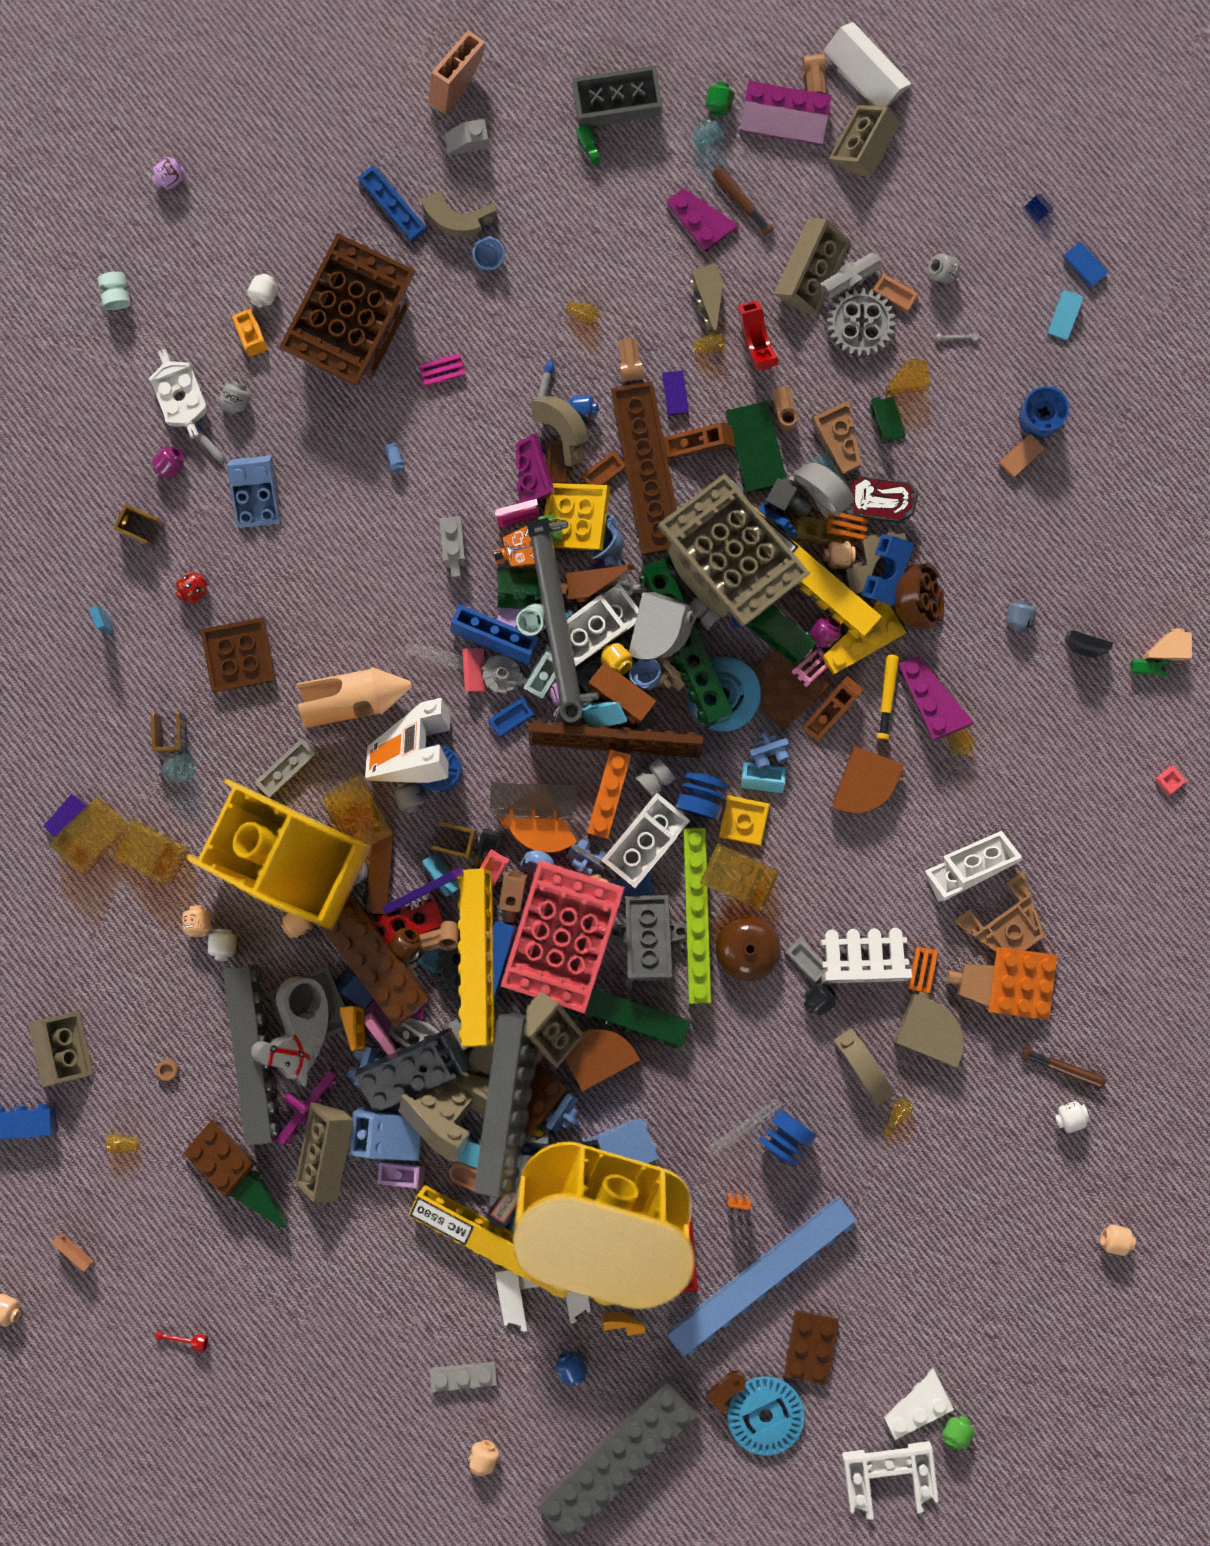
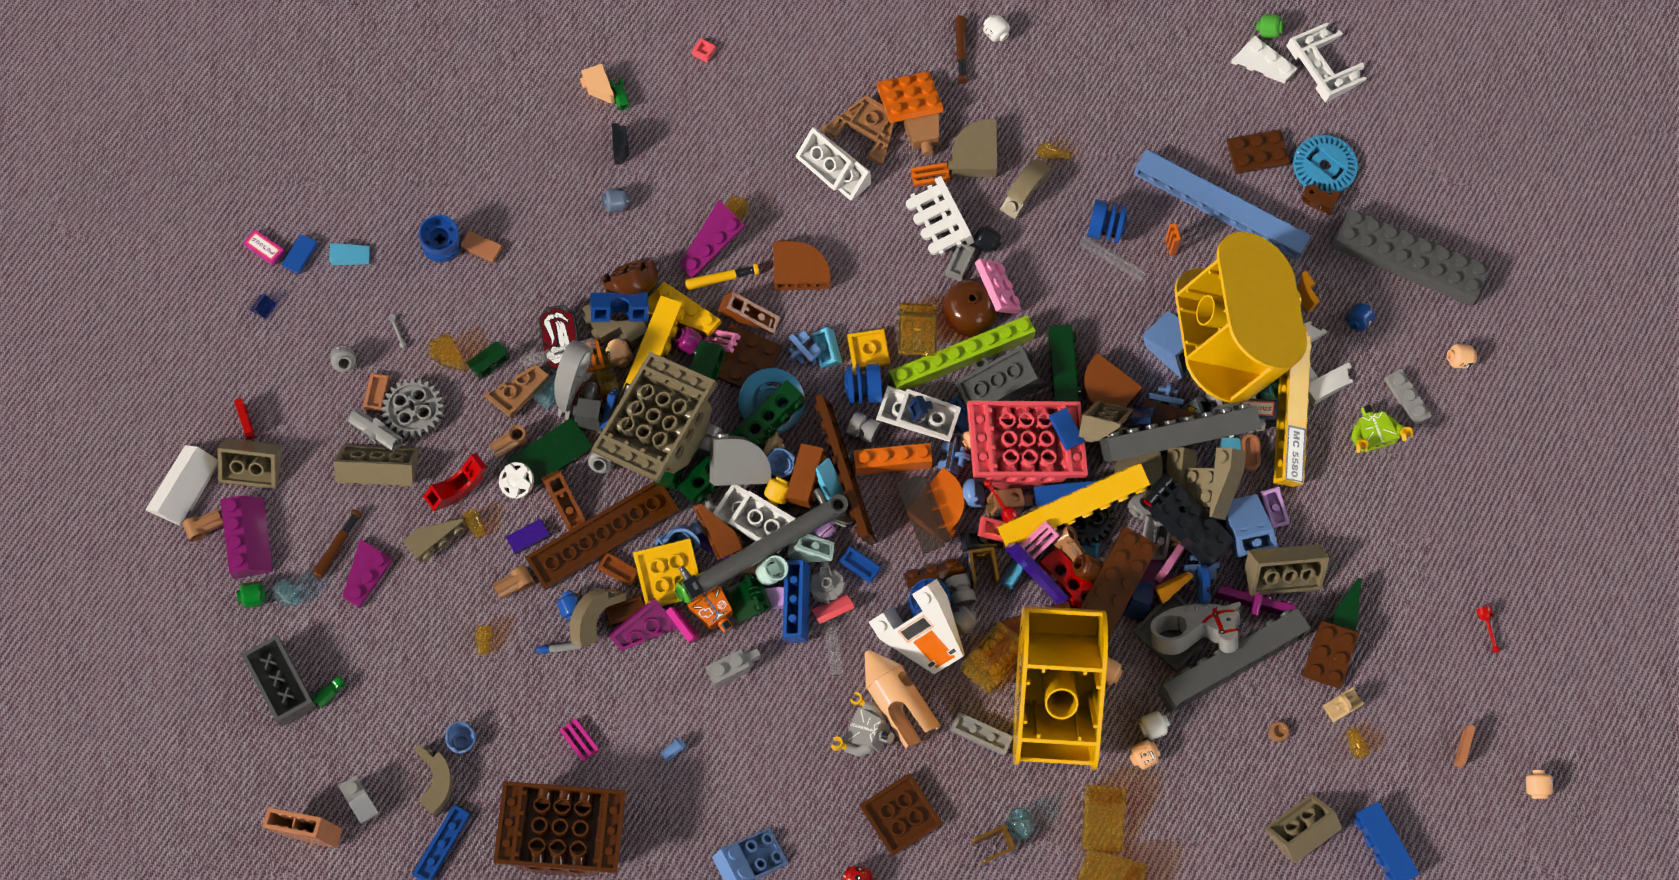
camera: 115 degrees left, 15 degrees down
(163, 1147) = (1343, 705): none -> tan hips
(332, 652) = (867, 730): none -> light grey torso
(340, 1057) = (1203, 583): none -> blue tile
(436, 1323) = (1377, 431): none -> lime torso
(439, 807) = (960, 590): none -> light grey wheel
(456, 904) = (1033, 535): none -> bright pink tile
(470, 787) = (935, 571): none -> reddish brown plate
(494, 885) = (1008, 513): none -> red hinge
(544, 1075) = (1143, 415): none -> dark blue tile
(557, 982) = (1066, 429): none -> blue tile
(645, 840) = (919, 408): none -> dark blue tile
(739, 400) = (516, 480): none -> white wheel
(758, 986) = (998, 286): none -> bright pink plate
(863, 493) = (551, 354): none -> clear axle
(915, 150) = (244, 418): none -> red tile
(1107, 229) = (263, 247): none -> tile

